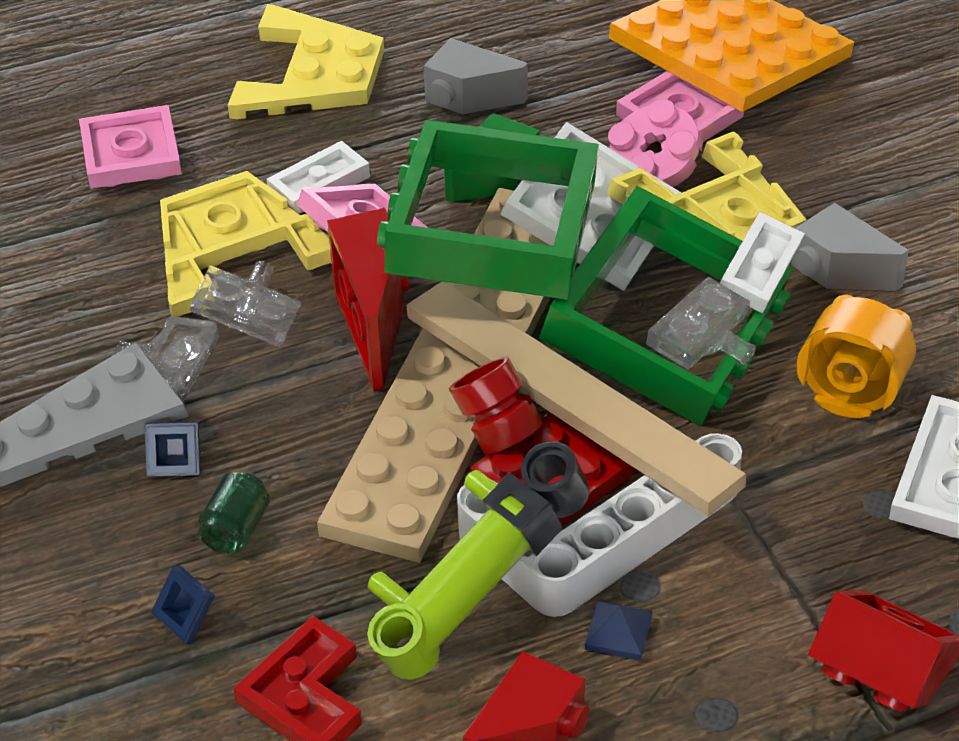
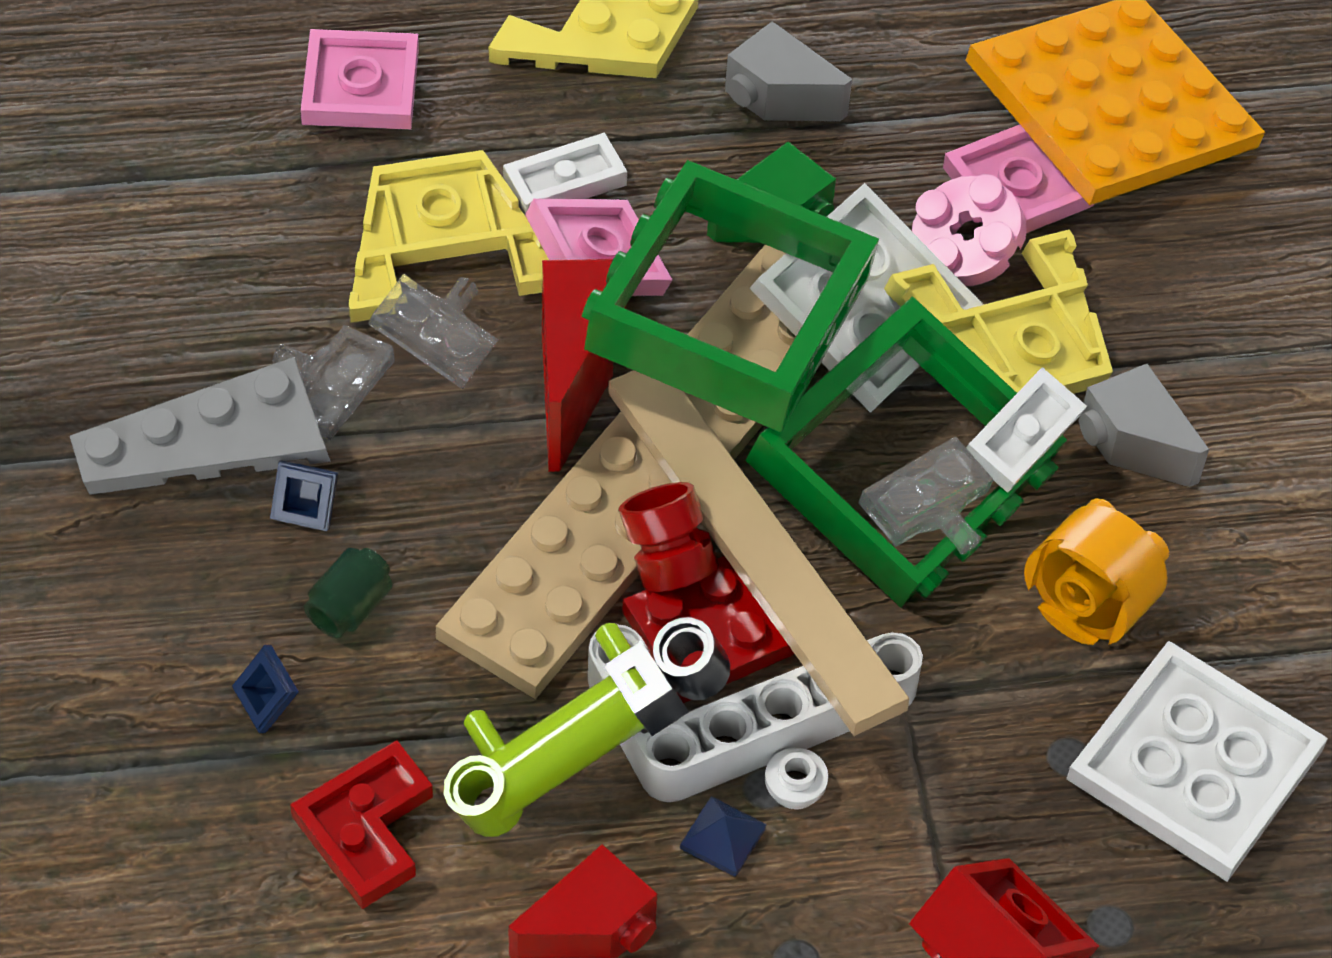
camera: 10 degrees right, 10 degrees up
(665, 569) = (793, 792): none -> white plate

